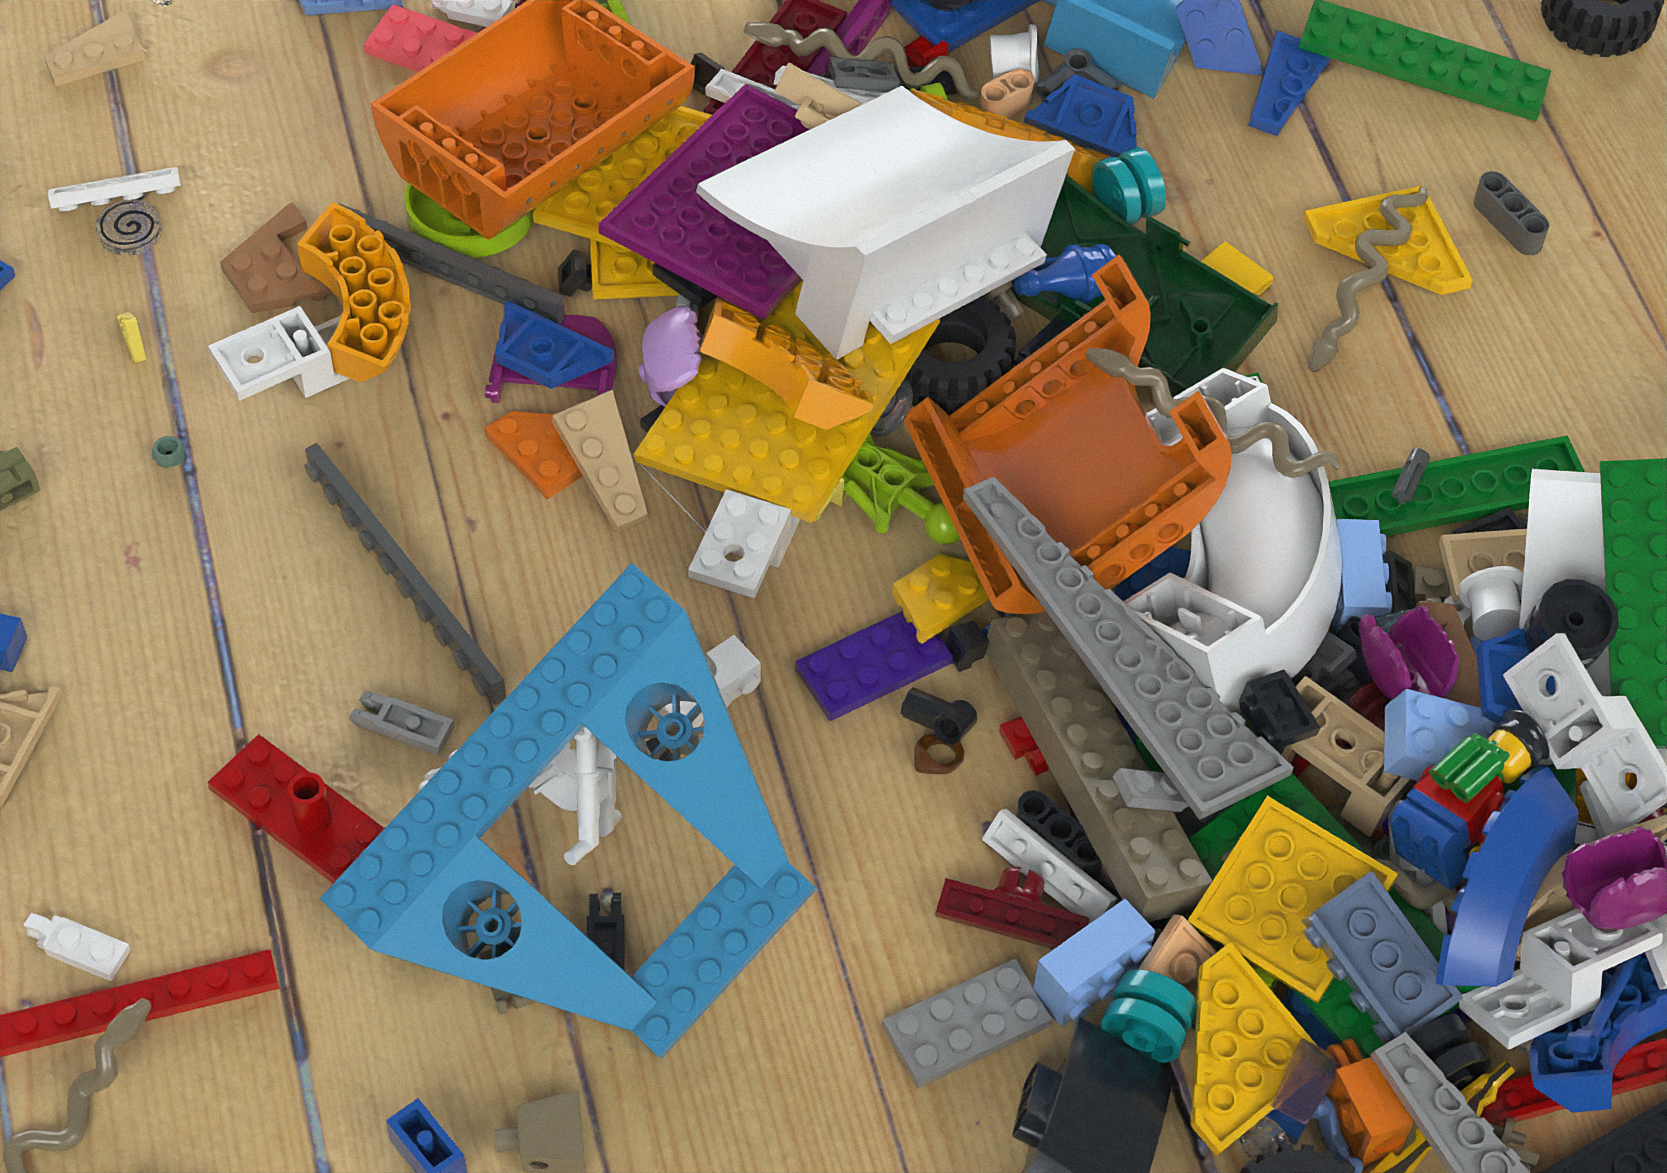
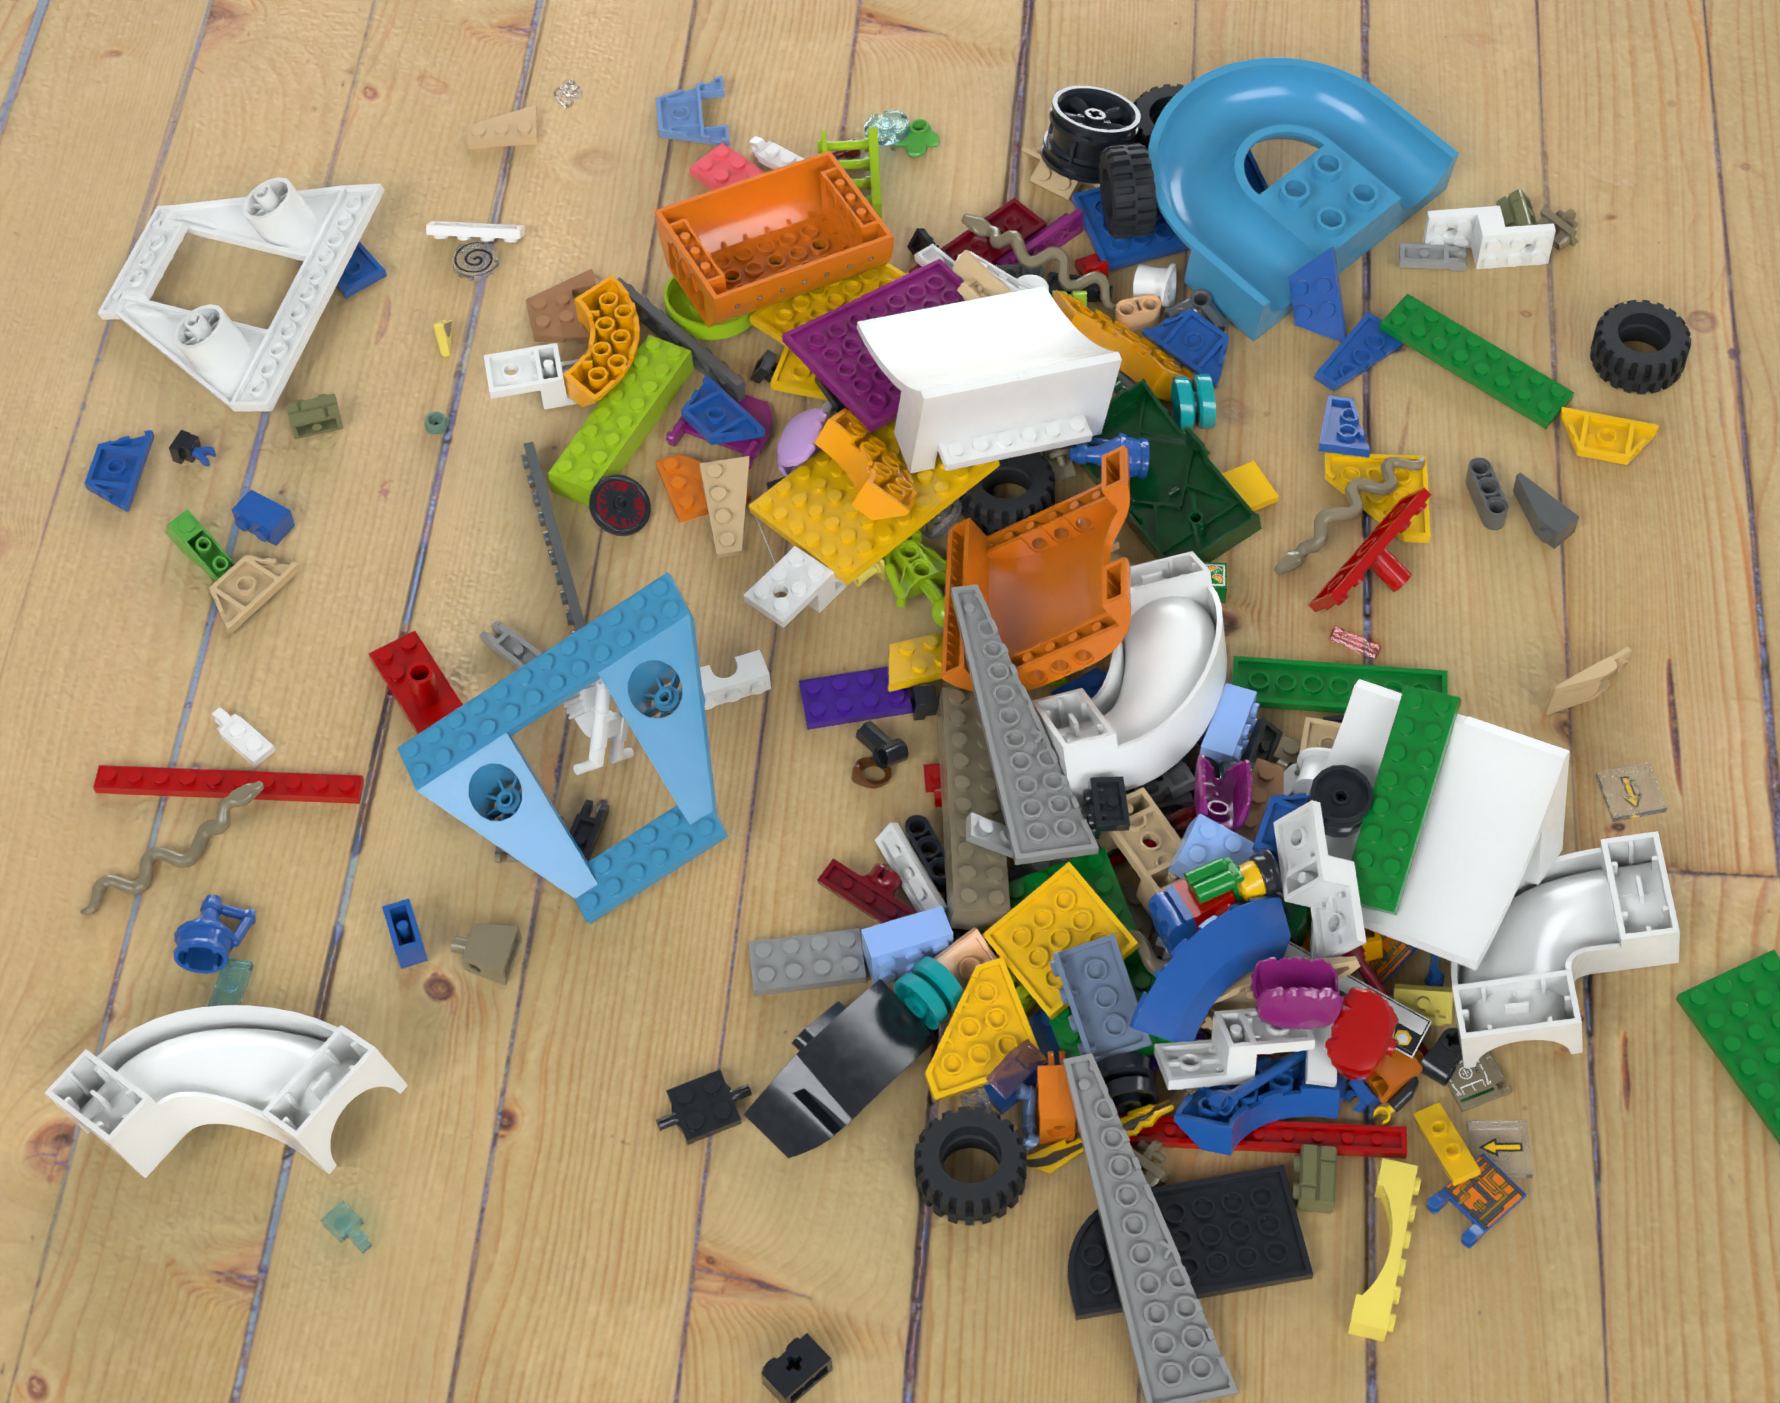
camera: 25 degrees right, 0 degrees up
(419, 392) = (621, 419): none -> lime brick
(465, 496) = (619, 505): none -> black shield
(863, 74) = (1026, 272): dark grey piece -> none
(1119, 365) = (1097, 526): dark tan animal -> none
(1310, 178) = (1342, 429): none -> wing
(1411, 475) = (1308, 668): dark grey piece -> none
(1423, 318) = (1374, 555): none -> red plate
(1443, 430) = (1355, 642): none -> clear red axle
(1584, 219) = (1545, 514): none -> dark grey slope
(1608, 112) = (1606, 436): none -> yellow wing

